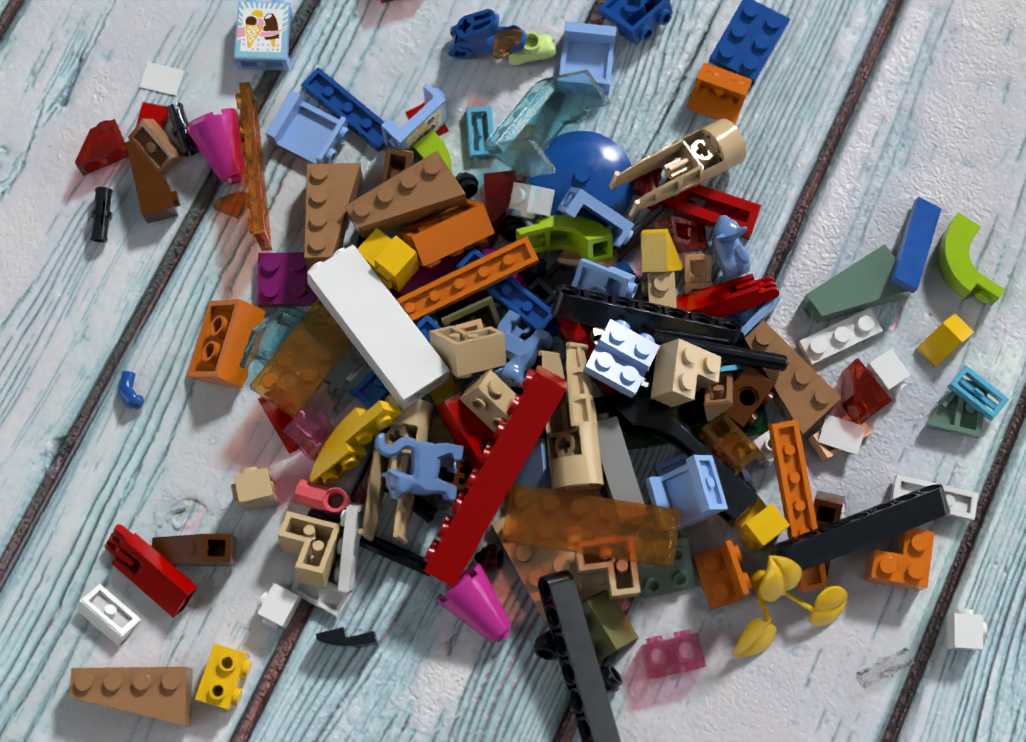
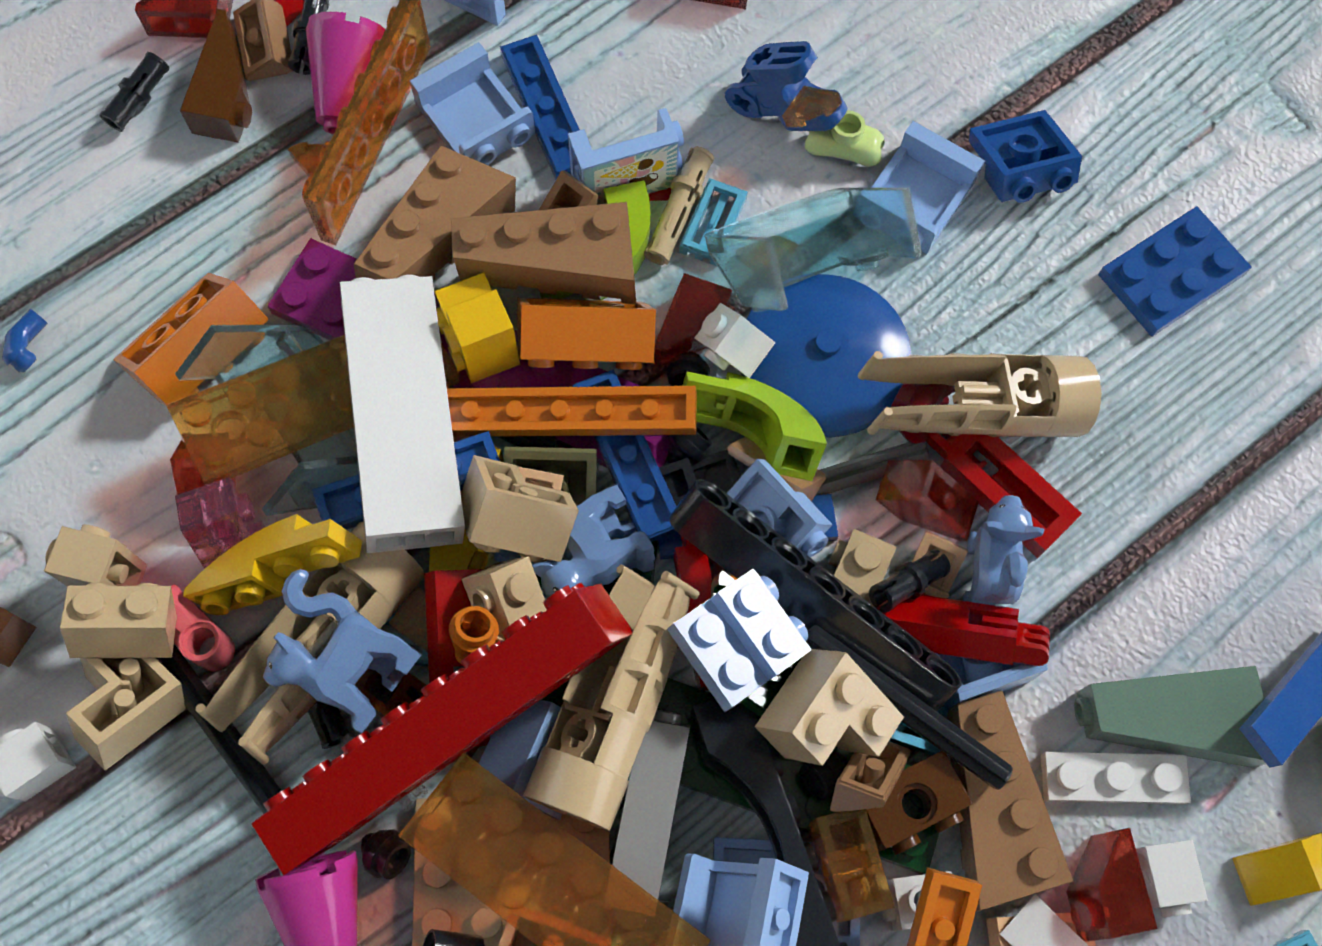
camera: 25 degrees right, 5 degrees down
(293, 508) = (119, 621): none -> tan brick
(327, 599) = (109, 791): white tile -> none
(339, 638) = (89, 864): black slope -> none
(348, 547) = (175, 727): white plate -> none
(456, 125) = (685, 191): none -> tan pin
(468, 183) = (652, 281): black plate -> none
(484, 423) = (471, 630): none -> orange cone
(579, 198) = (847, 434): light blue panel -> none
(659, 252) = (887, 506): yellow slope -> none
(689, 285) = (909, 580): none -> black pin
(718, 93) = (1092, 322): orange bracket -> none

